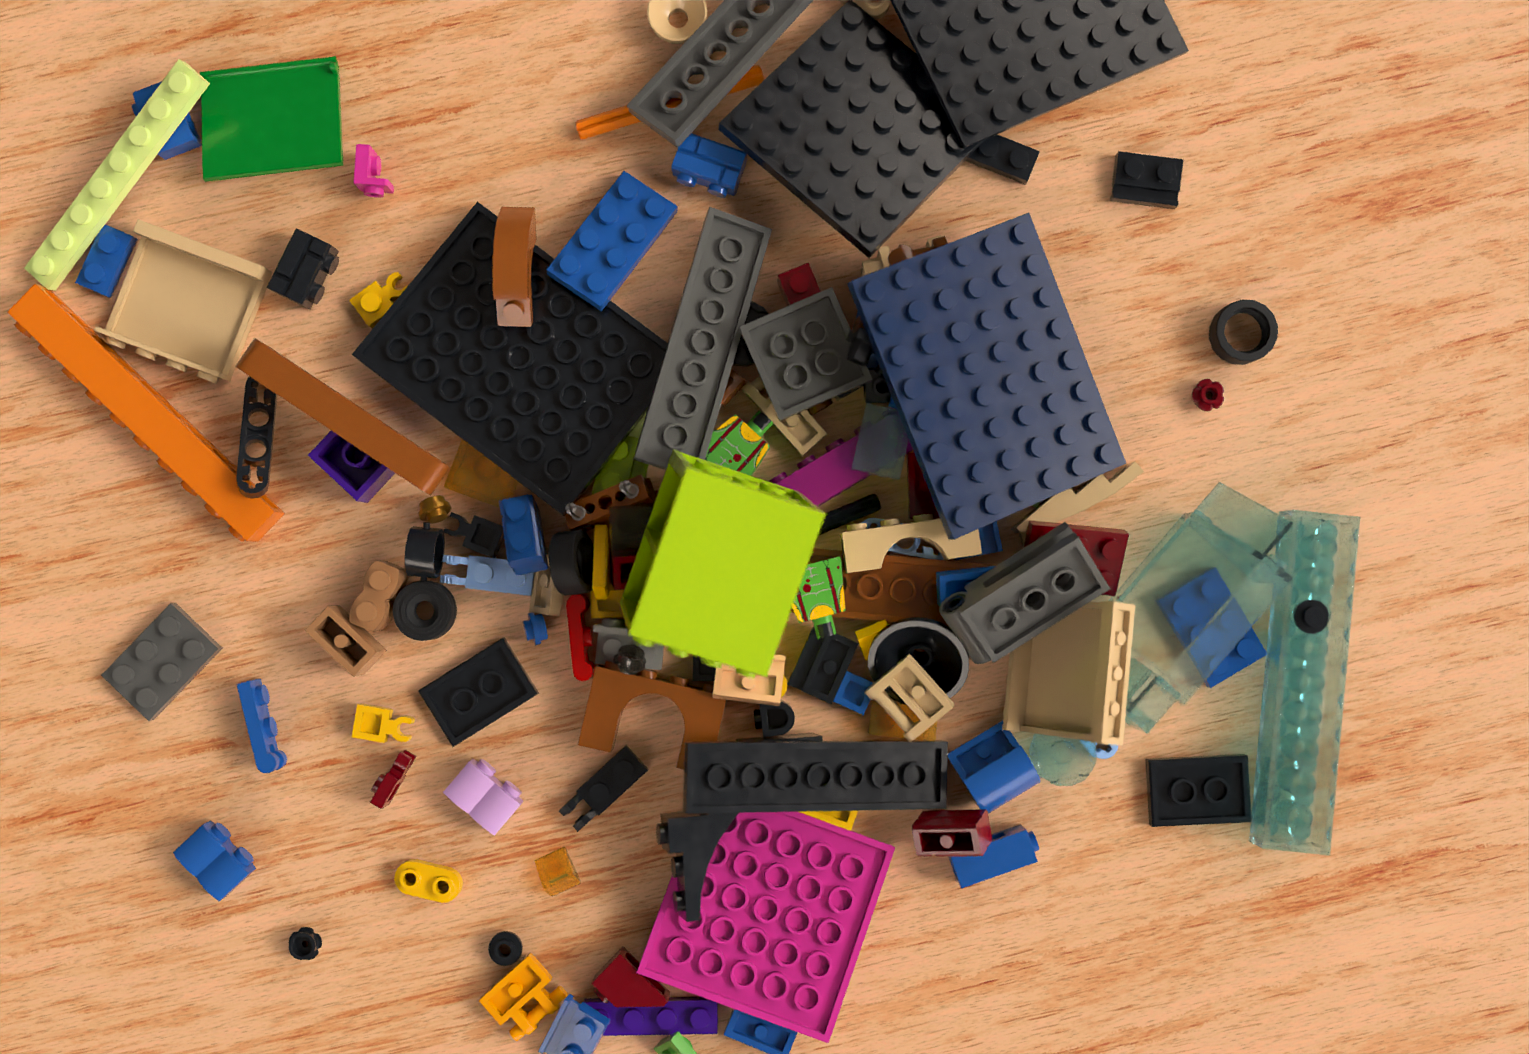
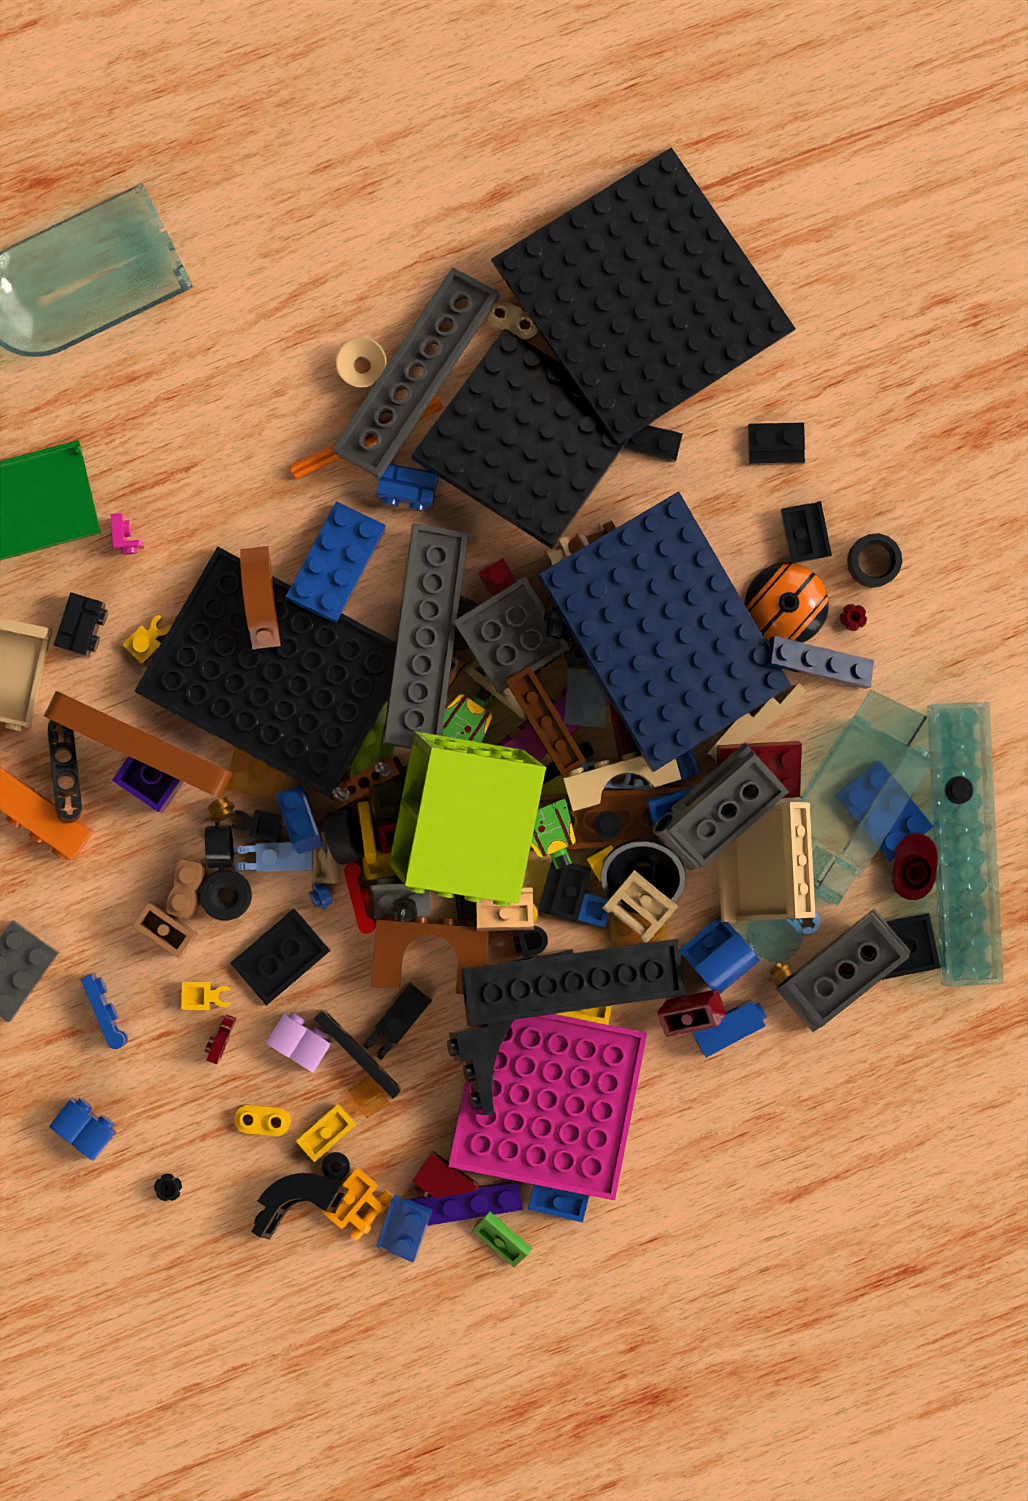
camera: 15 degrees left, 0 degrees up
(474, 974) = (292, 1190): none -> black arch
(500, 907) = (326, 1132): none -> yellow plate
(551, 820) = (358, 1053): none -> black tile
(830, 460) = (545, 720): none -> reddish brown plate
(885, 595) = (607, 824): none -> black plate
(1062, 800) = (780, 973): none -> pearl gold plate
(1111, 829) = (824, 989): none -> dark grey hinge
(1122, 388) = (767, 607): none -> orange dish
(1163, 441) = (820, 662): none -> plate
(1167, 288) = (806, 532): none -> black plate
(1241, 699) = (915, 866): none -> dark red piece

